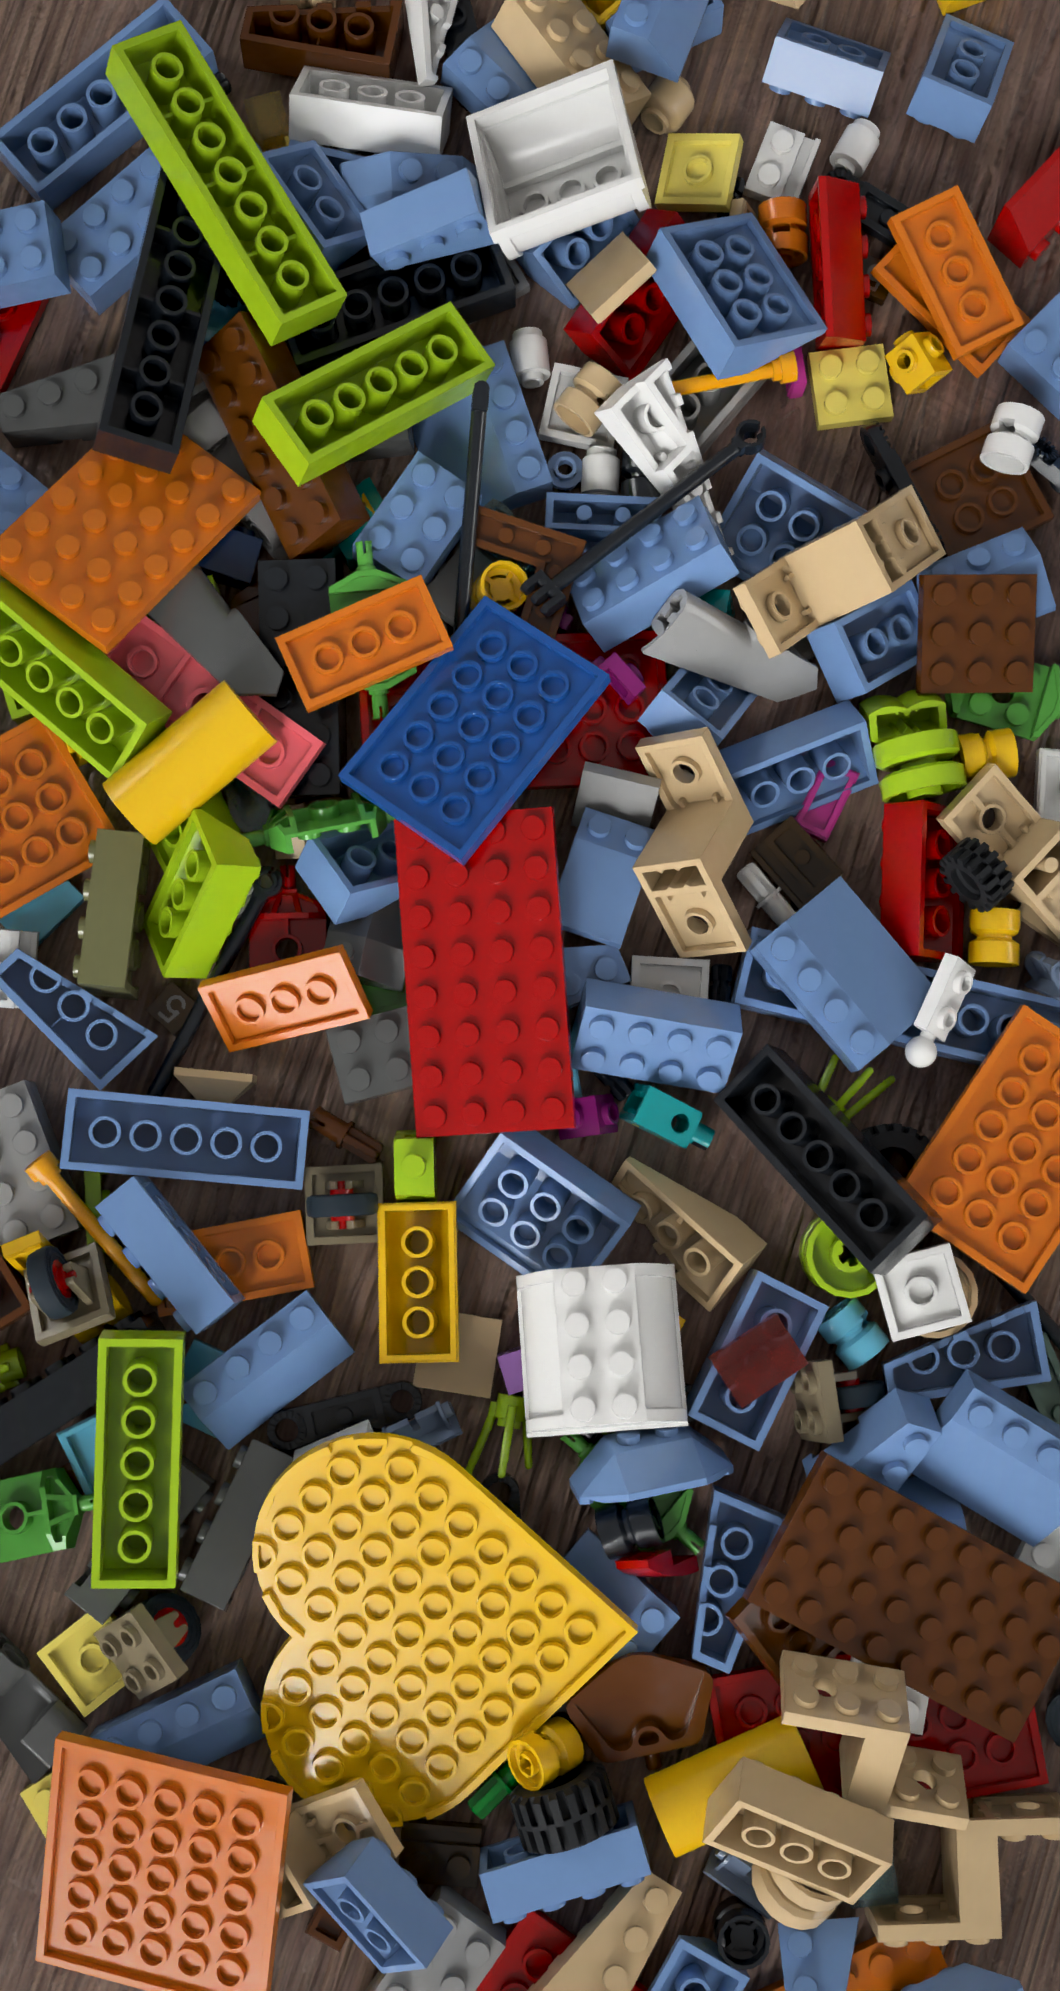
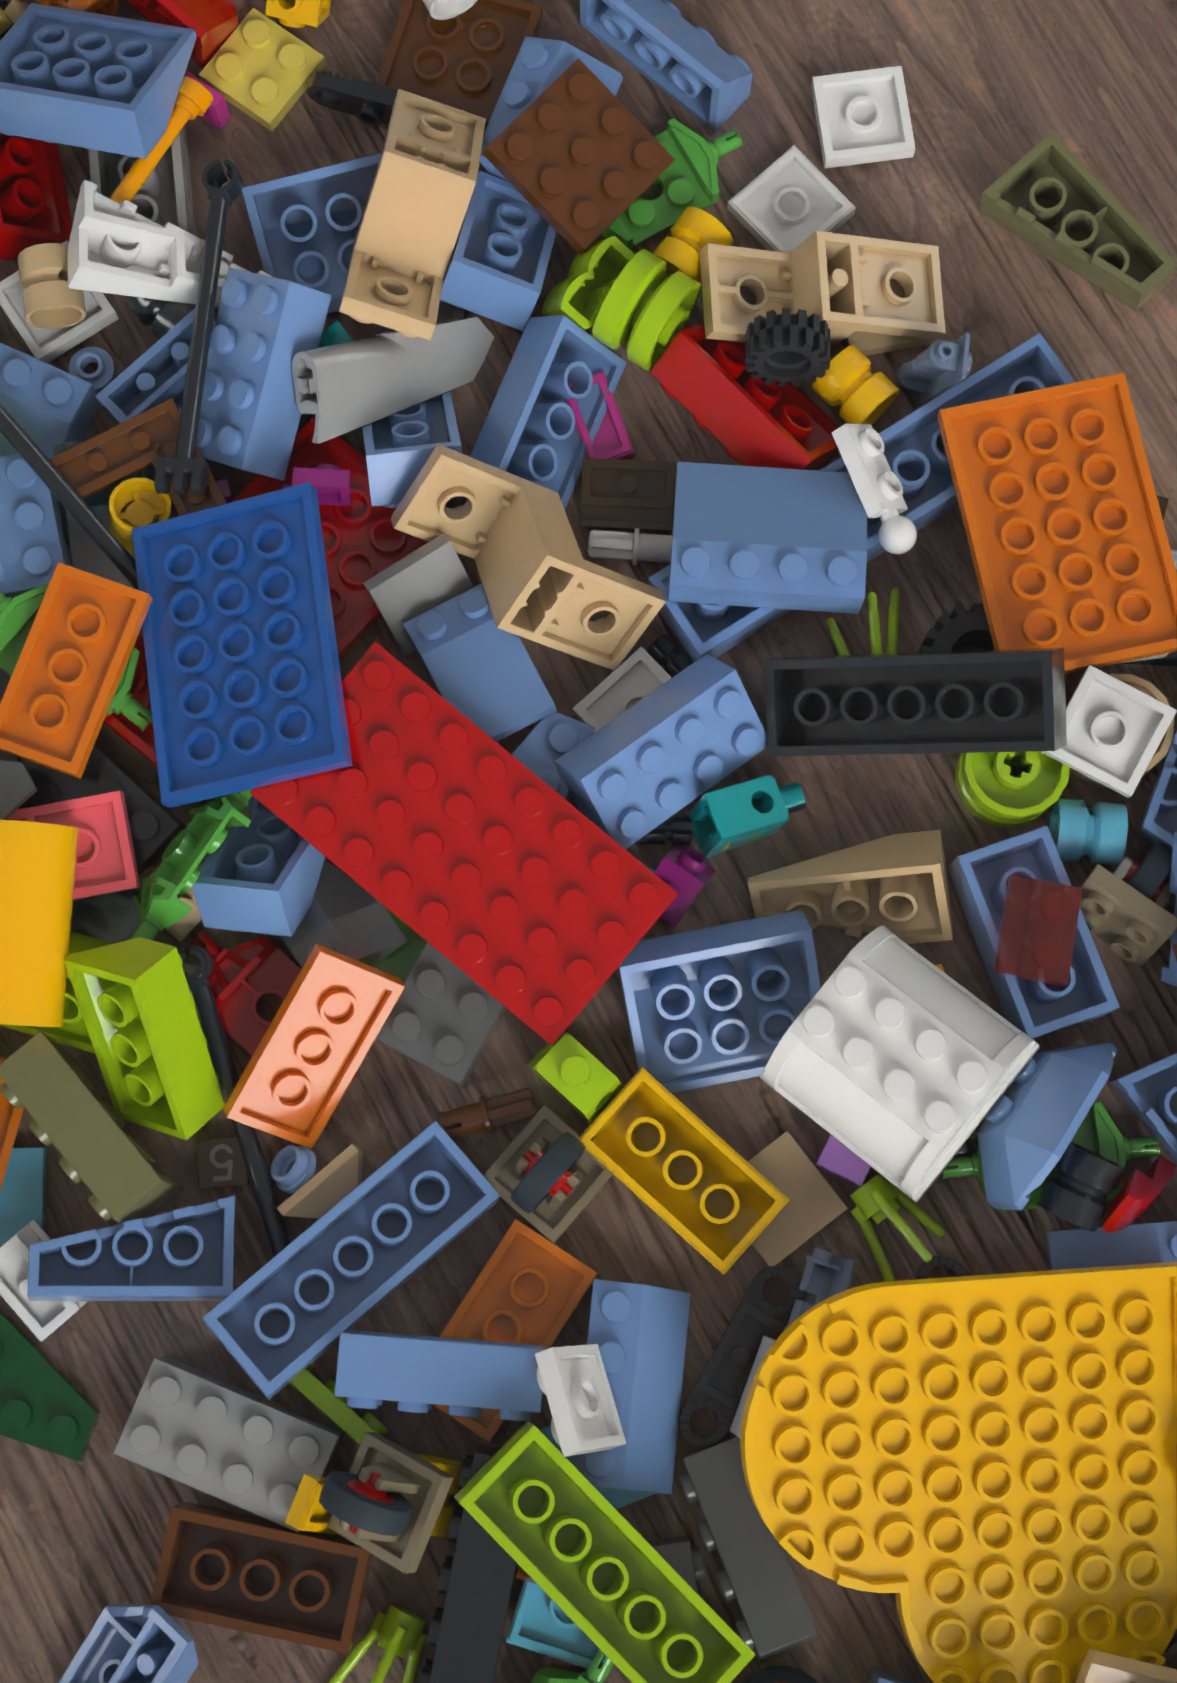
camera: 40 degrees left, 5 degrees down
(46, 1171) = (260, 1414): light orange piece -> none
(208, 1053) = (293, 1167): none -> light blue plate
(224, 1350) = (579, 1399): none -> white plate
(600, 471) = (122, 337): white brick -> none

